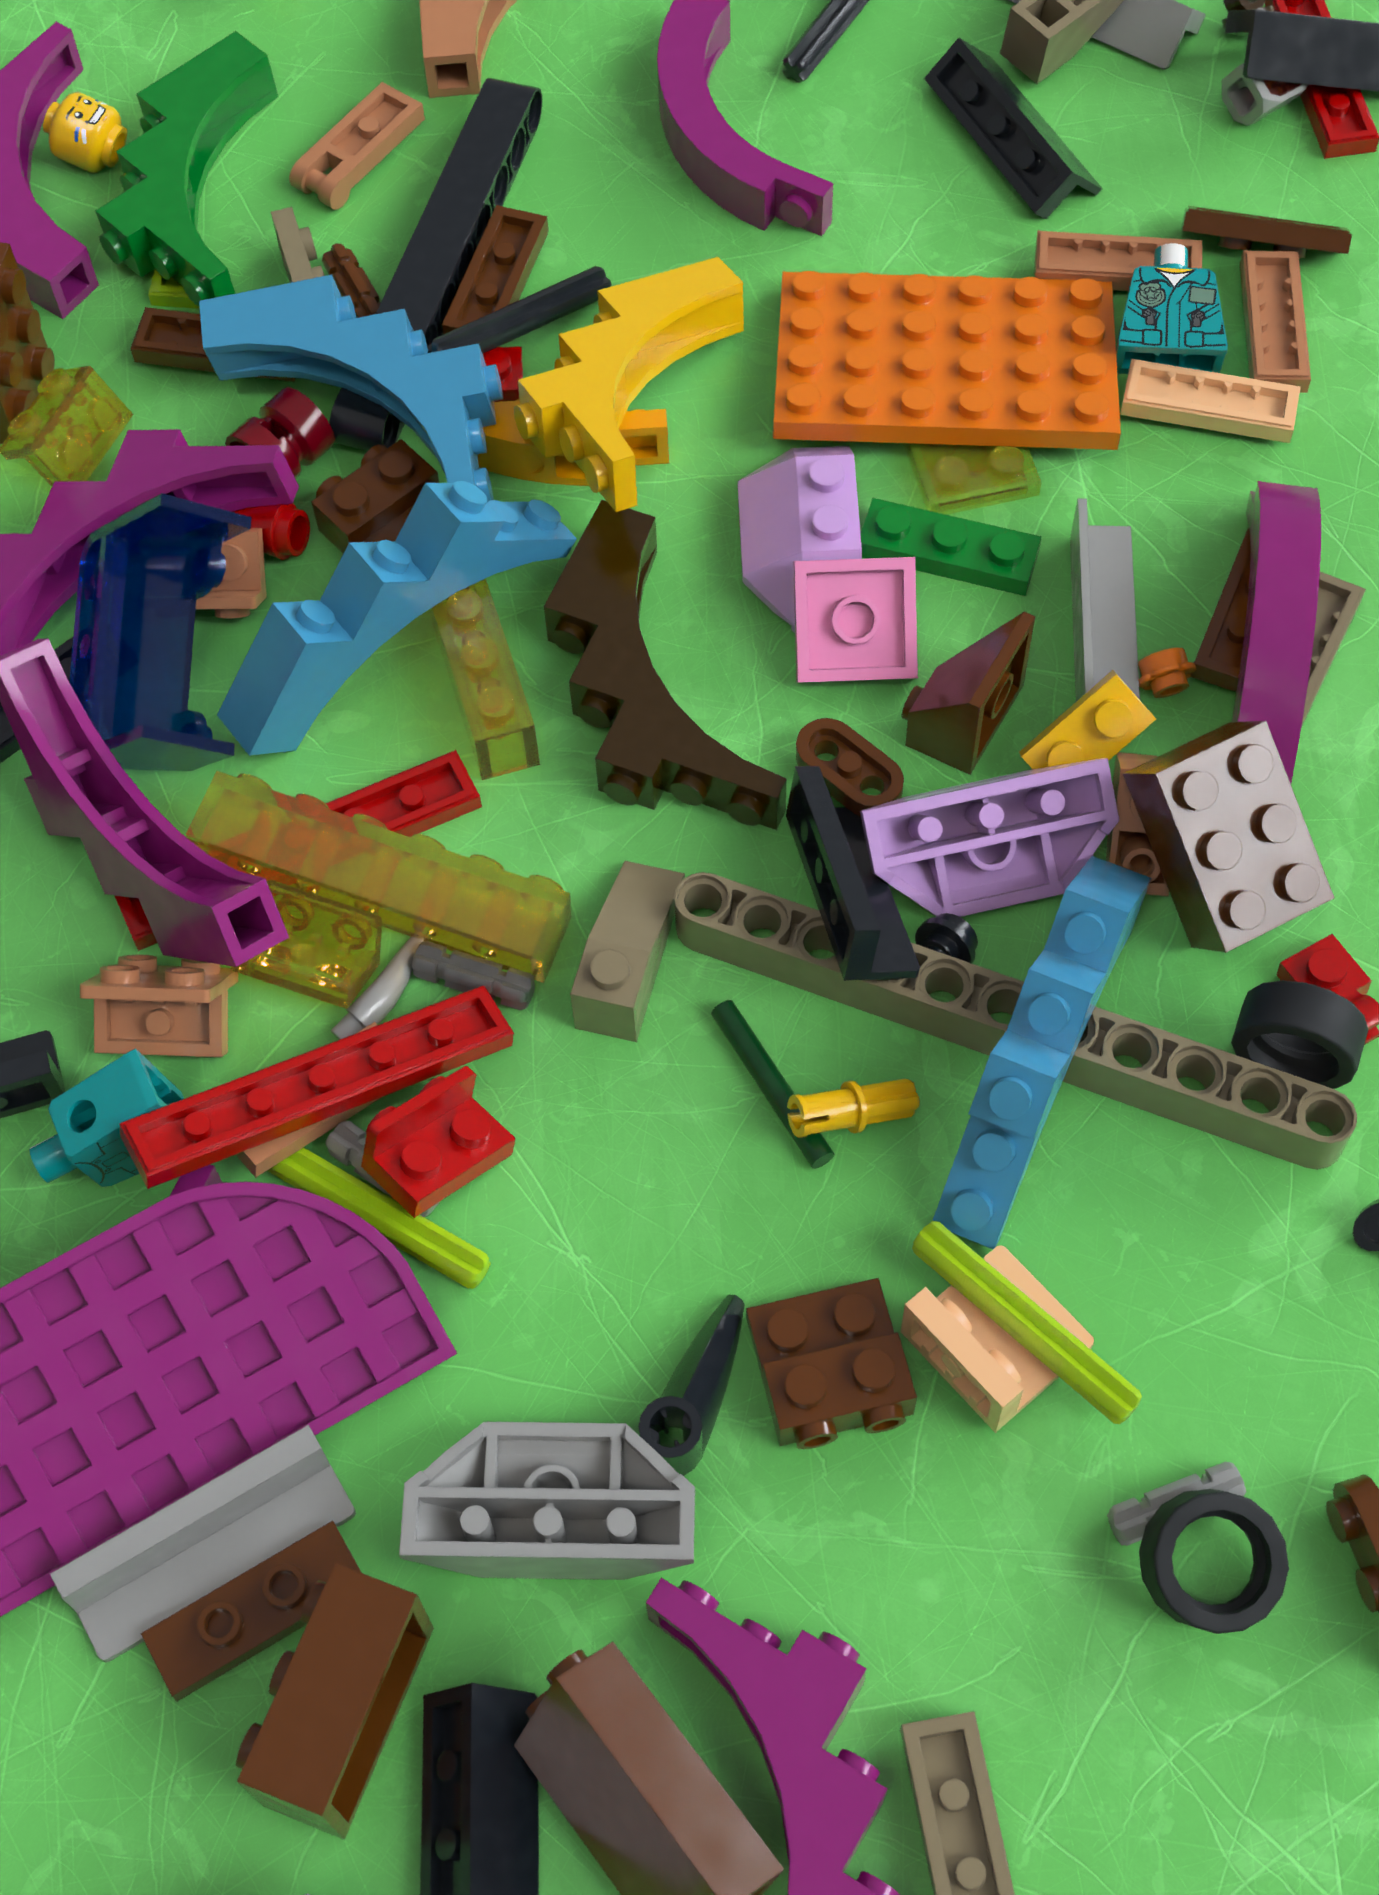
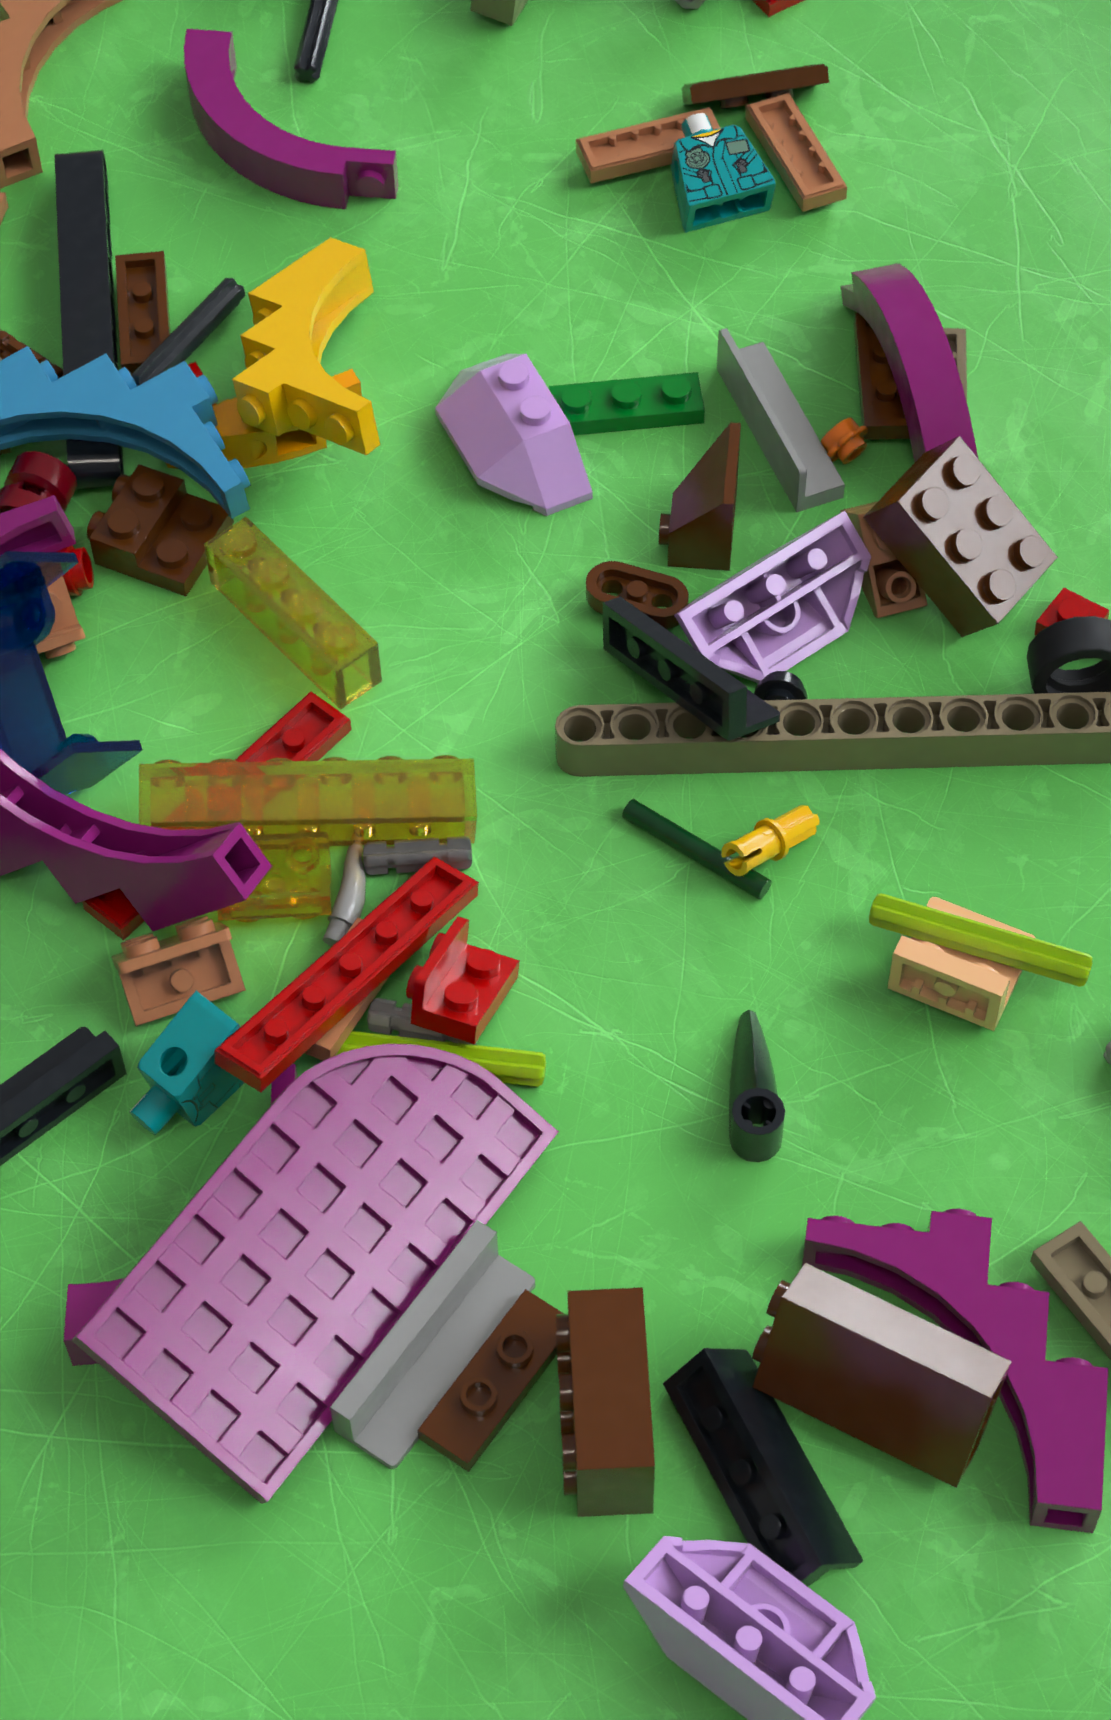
camera: 25 degrees left, 5 degrees down
(375, 592) = (202, 580): dark azure arch -> none
(549, 1505) = (699, 1203): light grey wedge -> none
(615, 686) = (426, 597): dark brown arch -> none
(625, 952) = (534, 794): dark tan slope -> none
(831, 1364) = (848, 1030): reddish brown plate -> none
(855, 619) = (587, 480): bright pink plate -> none
(947, 361) = (552, 262): orange plate -> none
(971, 475) = (606, 330): clear yellow plate -> none
(1008, 128) = (507, 67): black panel -> none
(1038, 1048) = (899, 743): dark azure arch -> none
(1092, 727) = (815, 495): yellow plate -> none
(1210, 400) = (776, 227): light nougat plate -> none

